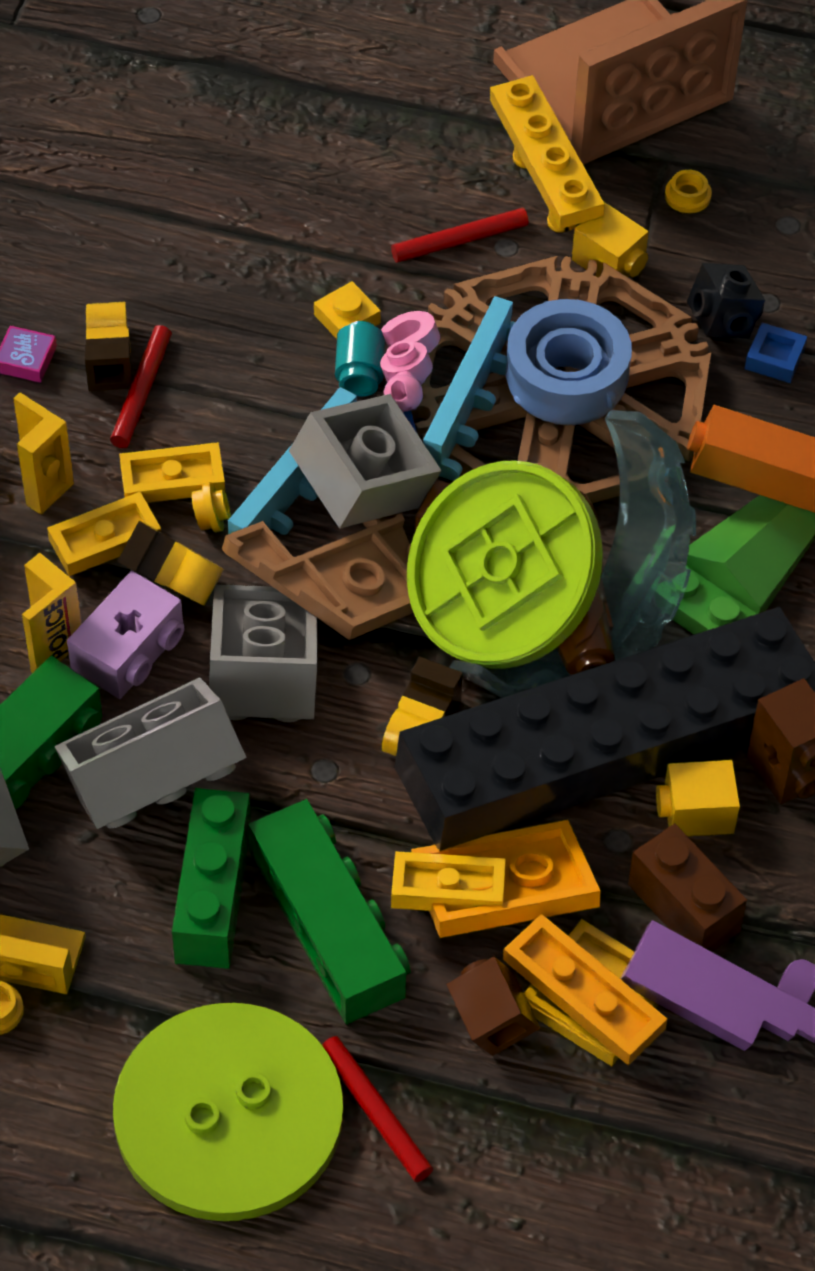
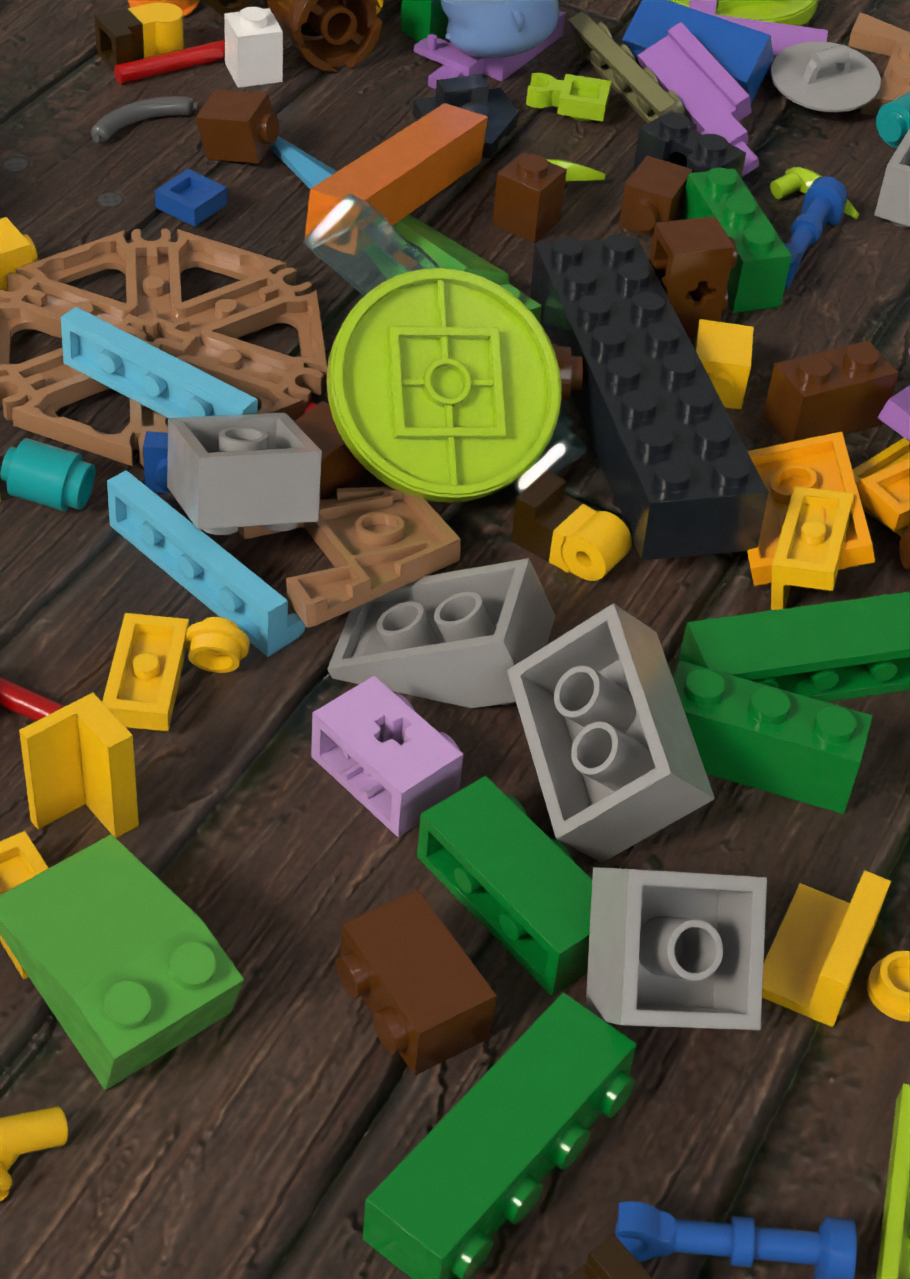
camera: 80 degrees left, 10 degrees down
(52, 613) = (355, 797): yellow panel -> none
(99, 533) = (215, 753): yellow plate -> none
(170, 563) = (298, 685): leg -> none
(407, 358) = (102, 416): bright pink piece -> none
(568, 336) = (177, 291): medium blue piece -> none
(725, 301) = (120, 199): black brick -> none

